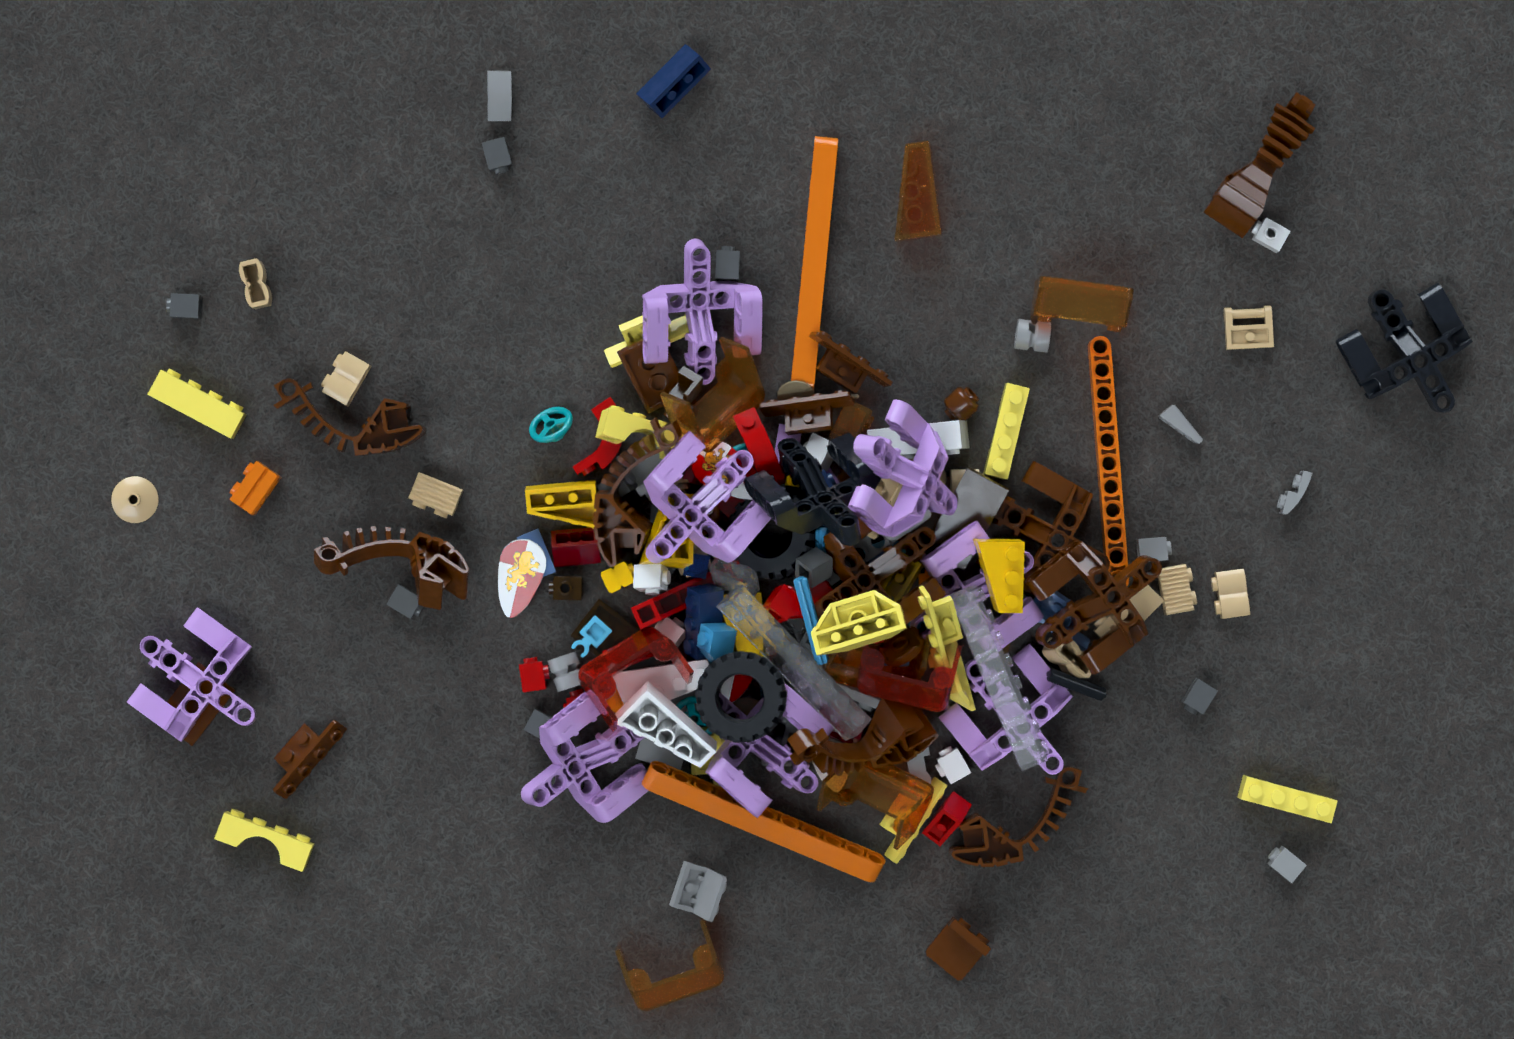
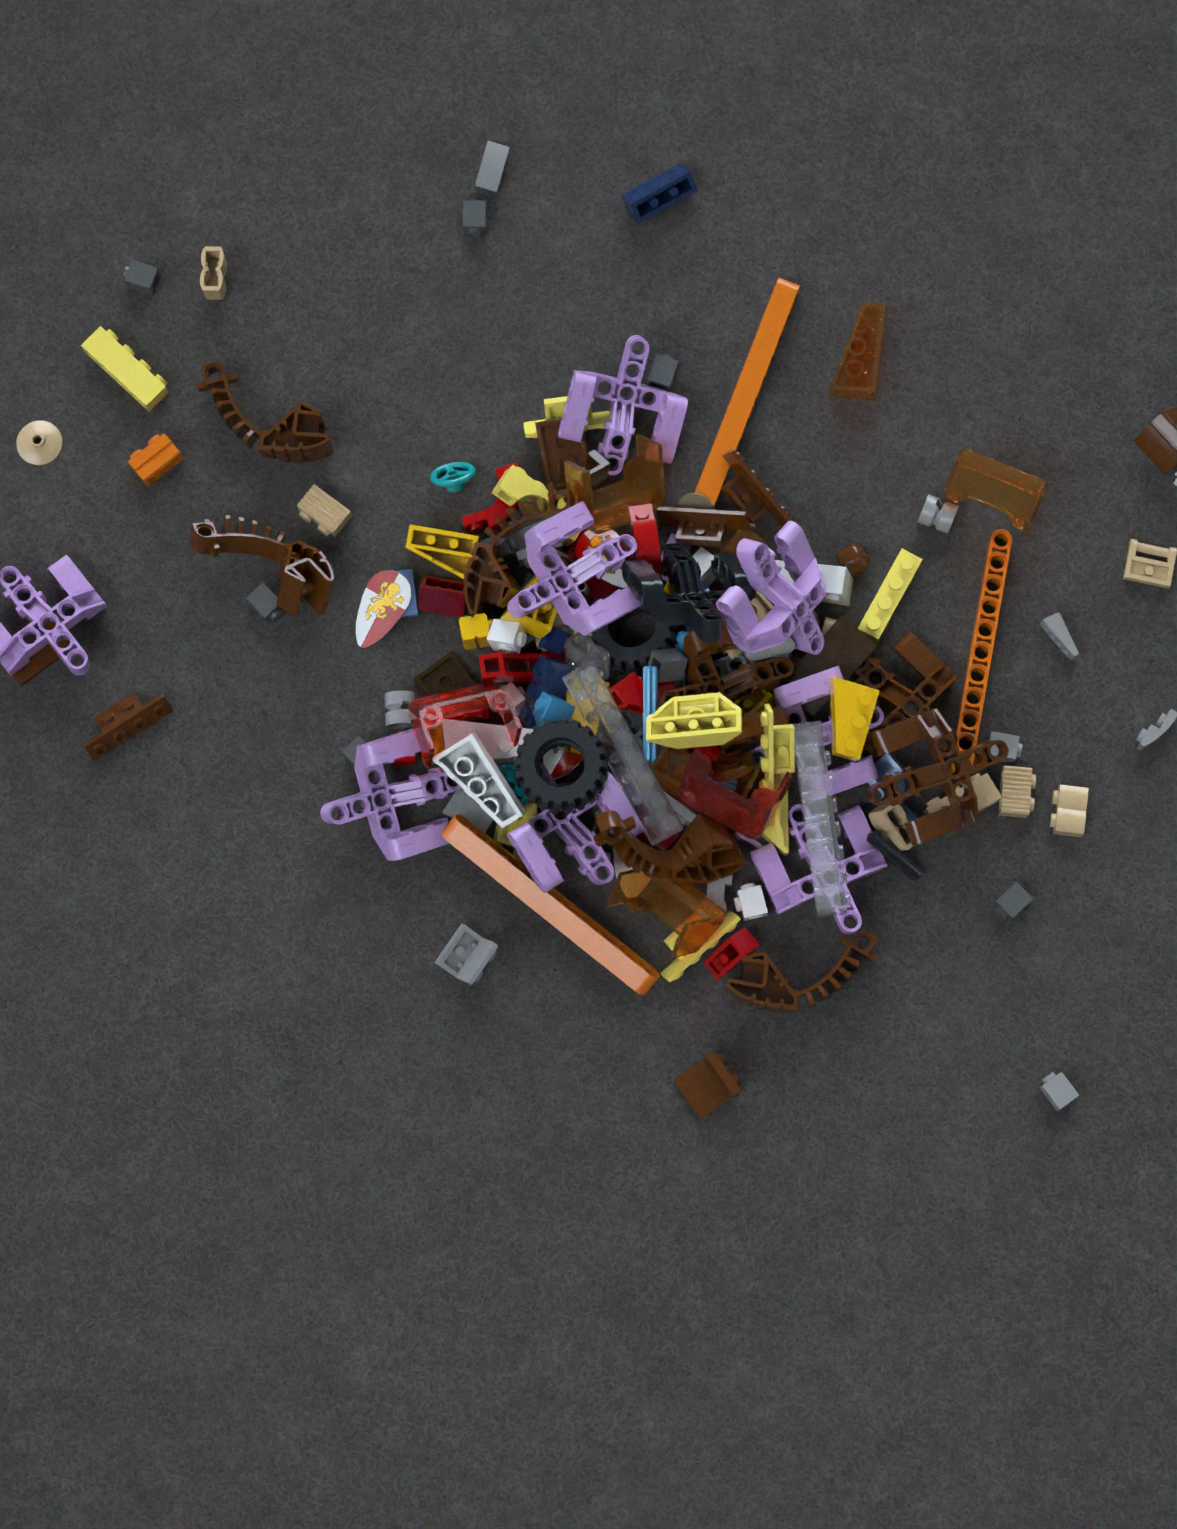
camera: 20 degrees right, 10 degrees down
(293, 850) = (38, 775): light yellow arch -> none
(346, 378) = (271, 382): tan brick -> none
(533, 674) = (367, 705): red brick -> none
(566, 587) = (423, 631): dark brown brick -> none
(594, 633) = (437, 679): medium azure plate -> none
(704, 977) = (420, 1043): clear orange windscreen -> none
(1287, 799) = (1077, 1025): light yellow arch -> none

